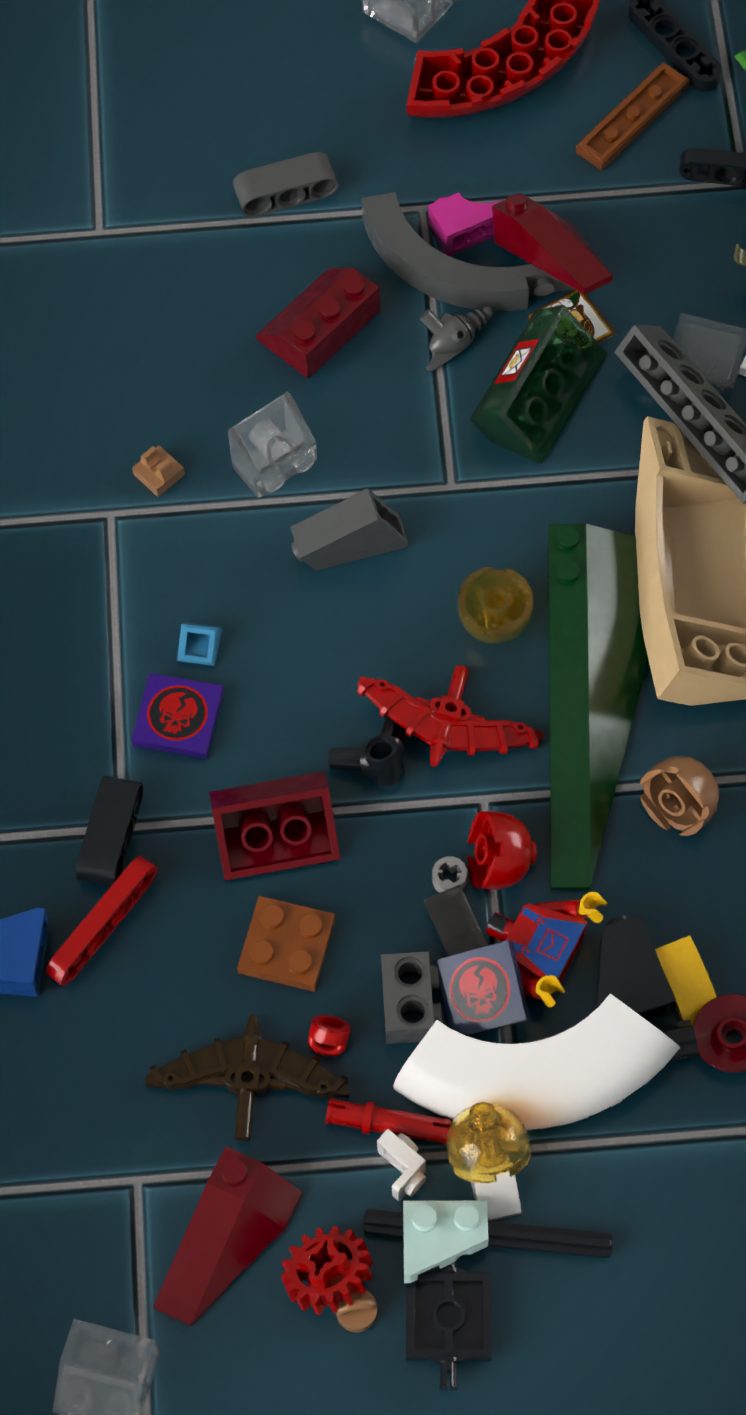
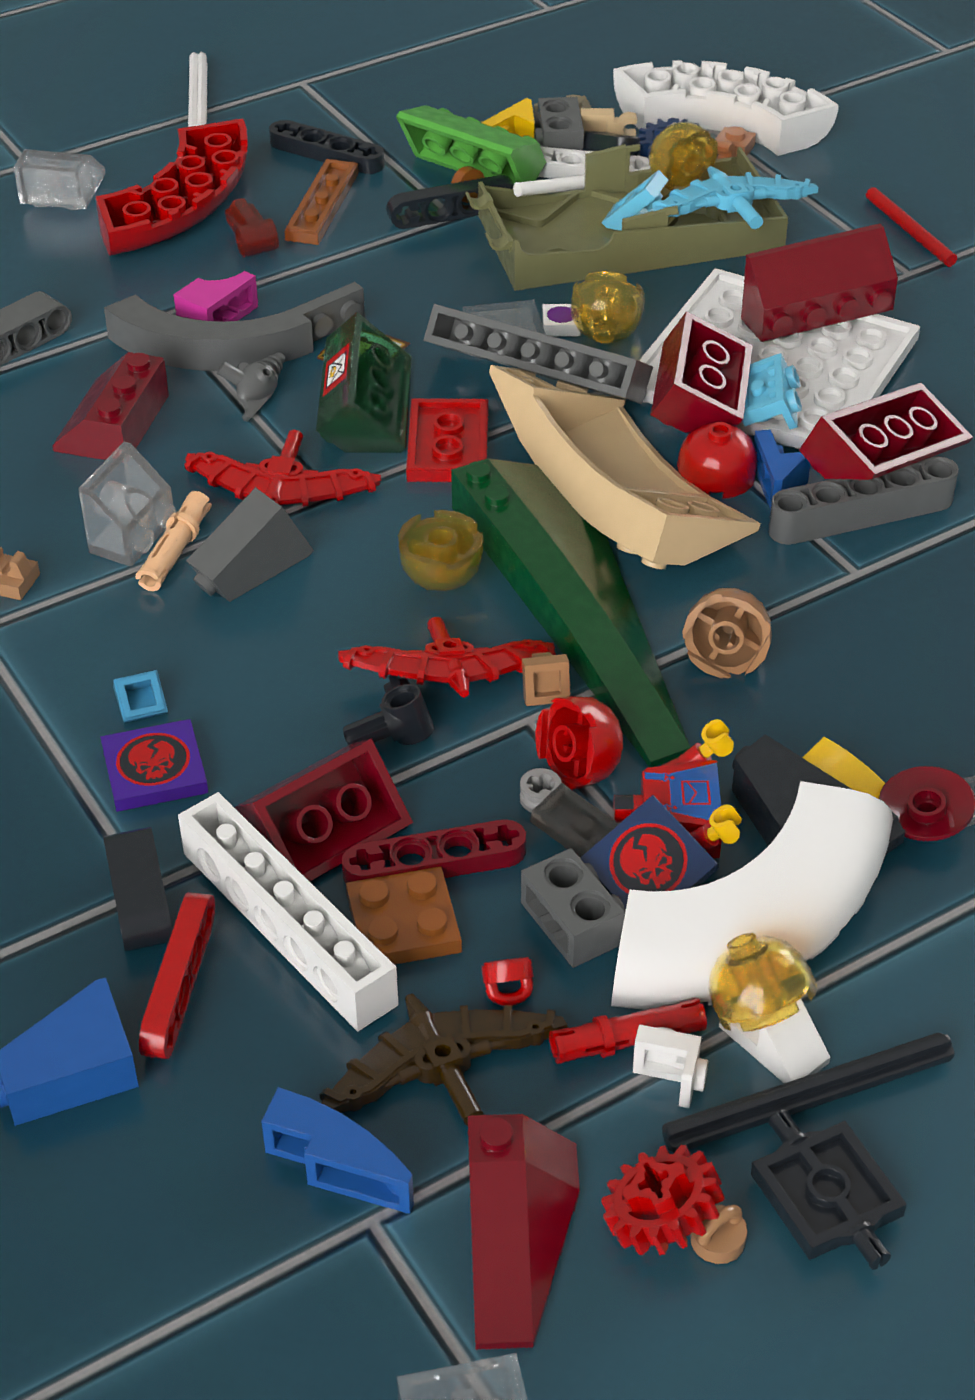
camera: 30 degrees left, 20 degrees down
(132, 1119) = (336, 1151): none -> blue slope
(199, 906) = (289, 911): none -> white brick
(310, 481) = (181, 529): none -> light nougat pin
(340, 892) = (433, 848): none -> dark red beam
(417, 457) = (281, 476): none -> red bar
(441, 1233) = (765, 1102): light aqua wing -> none
(511, 771) = (545, 678): none -> medium nougat tile
(545, 138) = (251, 231): none -> clear red piece
(548, 243) = (298, 280): dark red wedge -> none
(583, 468) = (445, 437): none -> red tile

